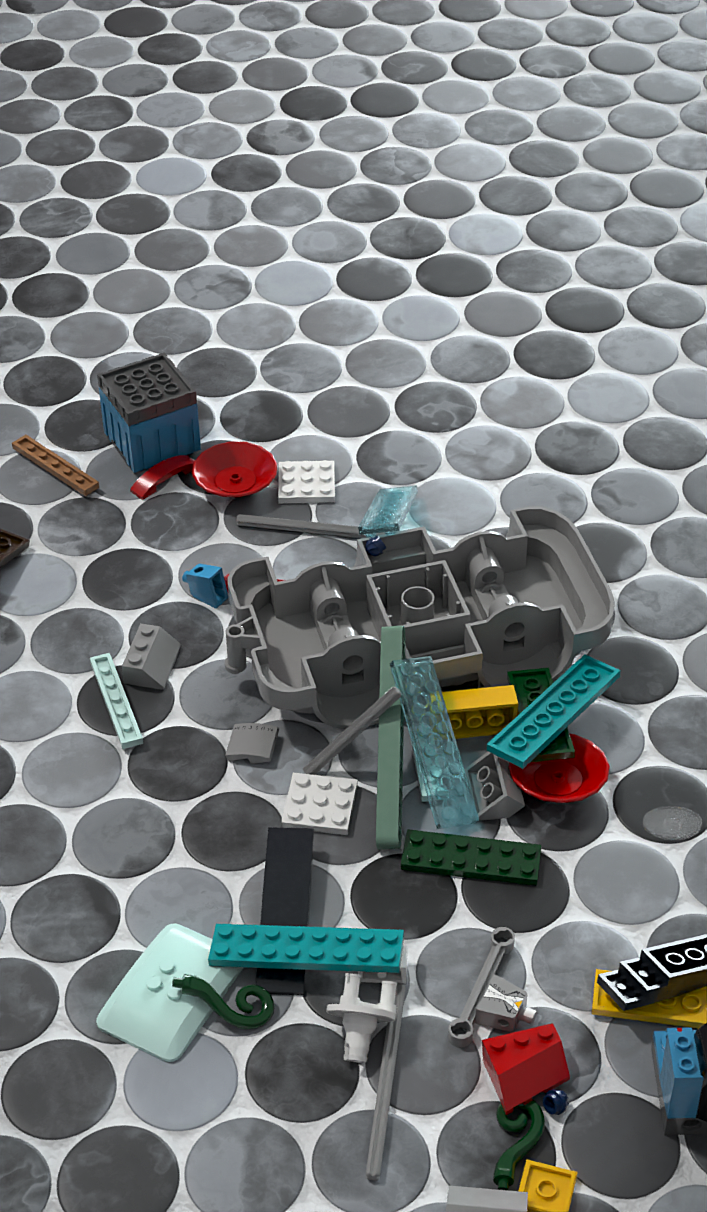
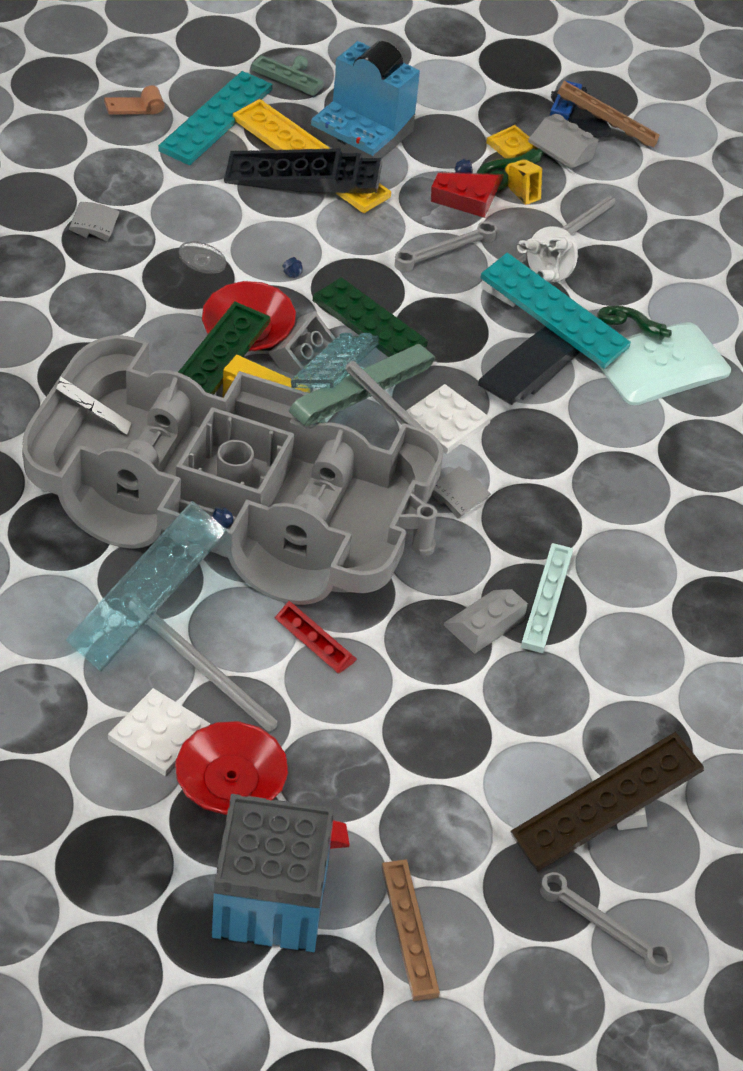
camera: 150 degrees left, 5 degrees up
(207, 584) = (376, 653): dark azure torso -> none
(479, 1117) = (525, 180): none -> yellow torso
(503, 1006) = (446, 223): light grey torso -> none
(553, 711) = (219, 331): teal plate -> none
(569, 585) = (93, 405): none -> white sticker
(586, 859) = (292, 267): none -> dark blue plate

